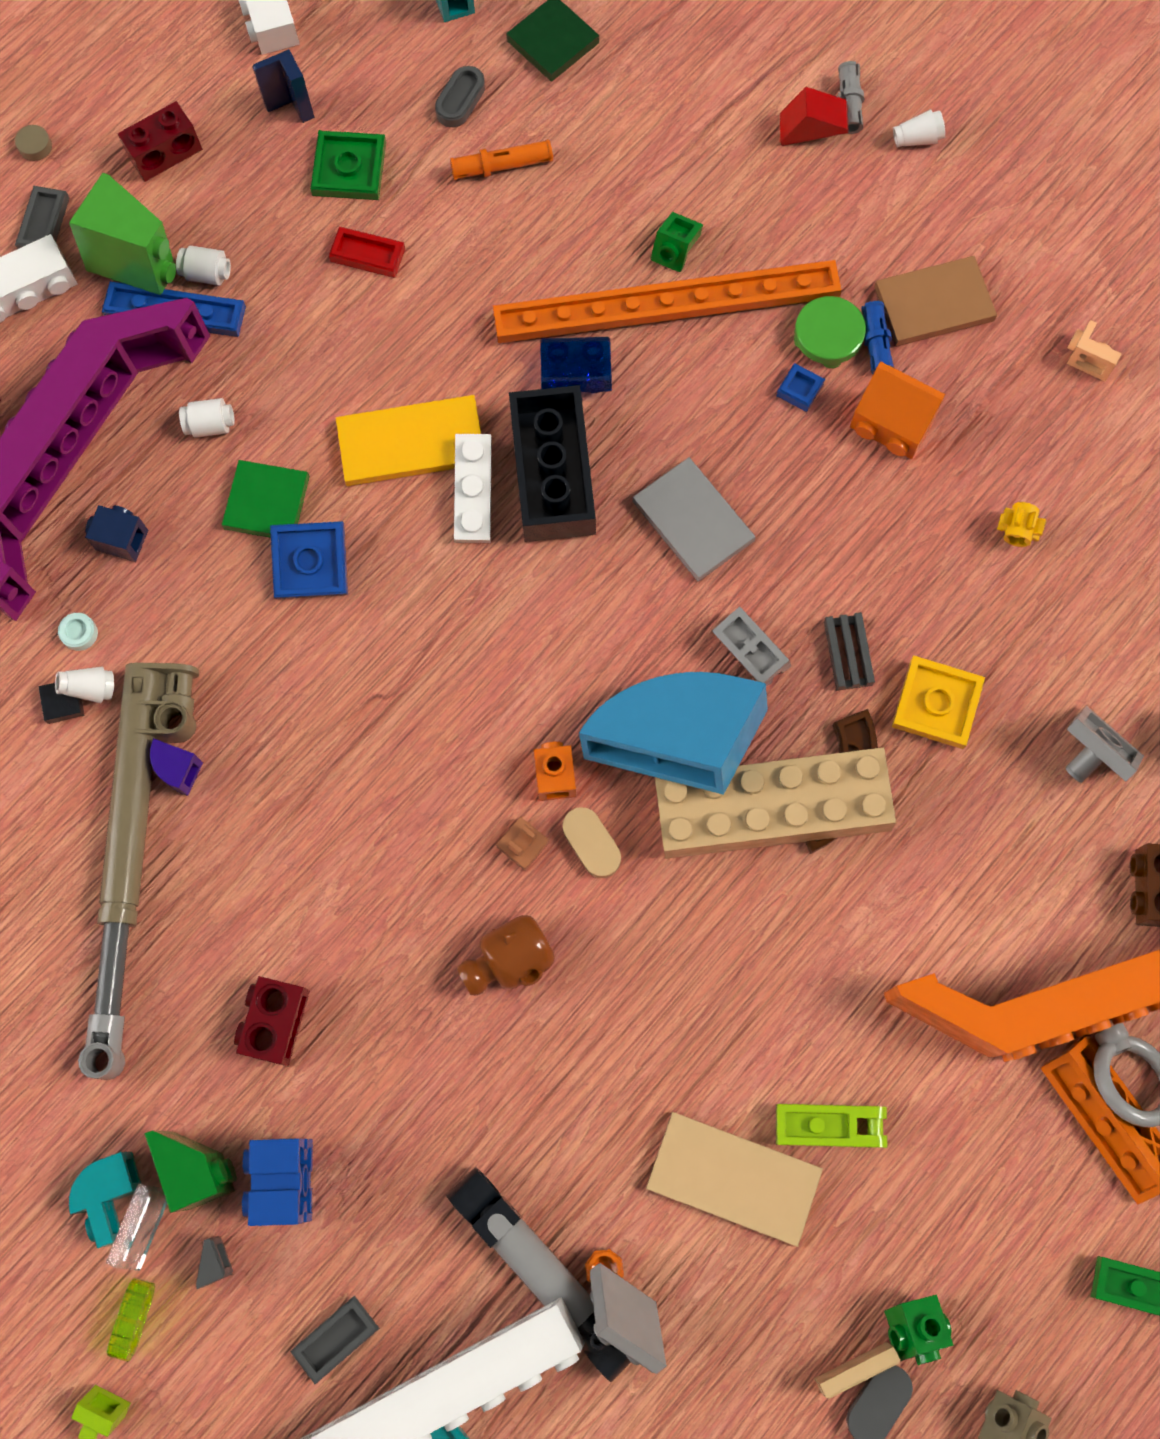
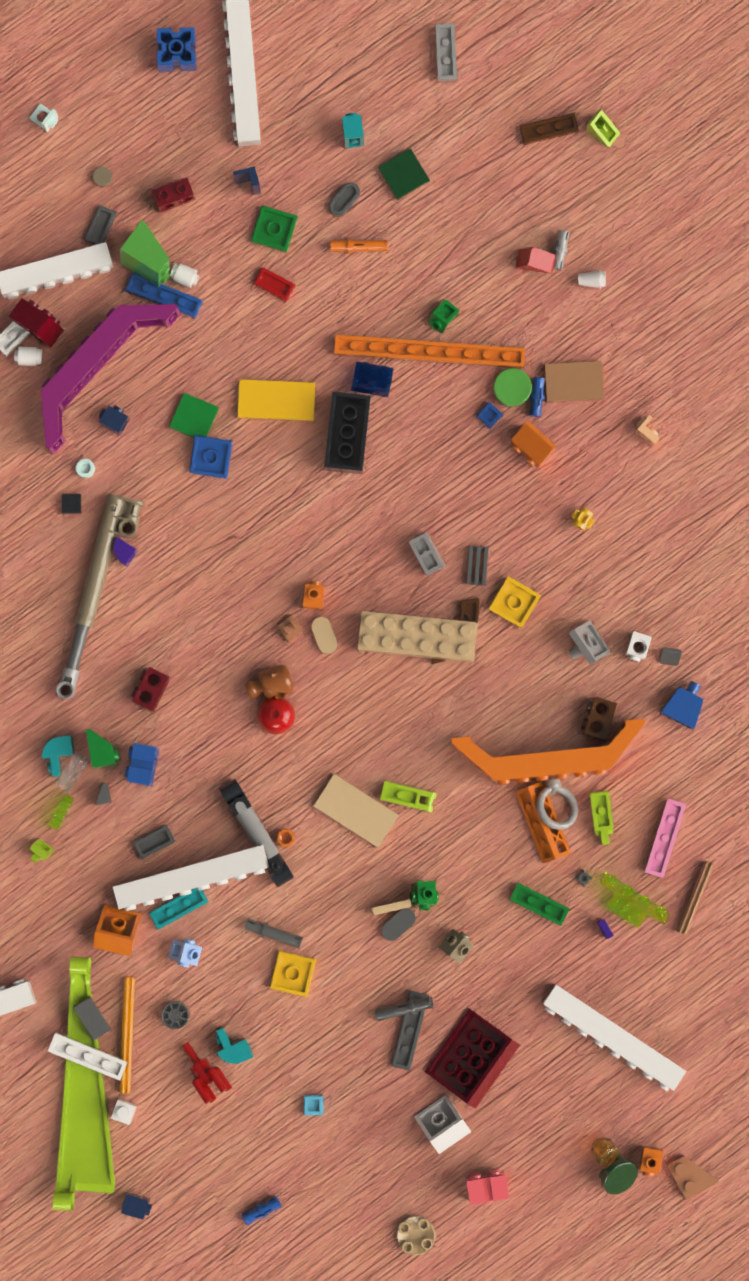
camera: 10 degrees right, 10 degrees up
(87, 684) = (87, 499): white cone -> none
(206, 418) = (171, 365): white brick -> none
(472, 488) = (303, 435): white plate -> none
(531, 1019) = (276, 715): none -> red cylinder
(626, 1319) = (290, 860): light grey tile -> none
(678, 728) = (379, 589): dark azure brick -> none
(693, 519) = (415, 477): light grey tile -> none

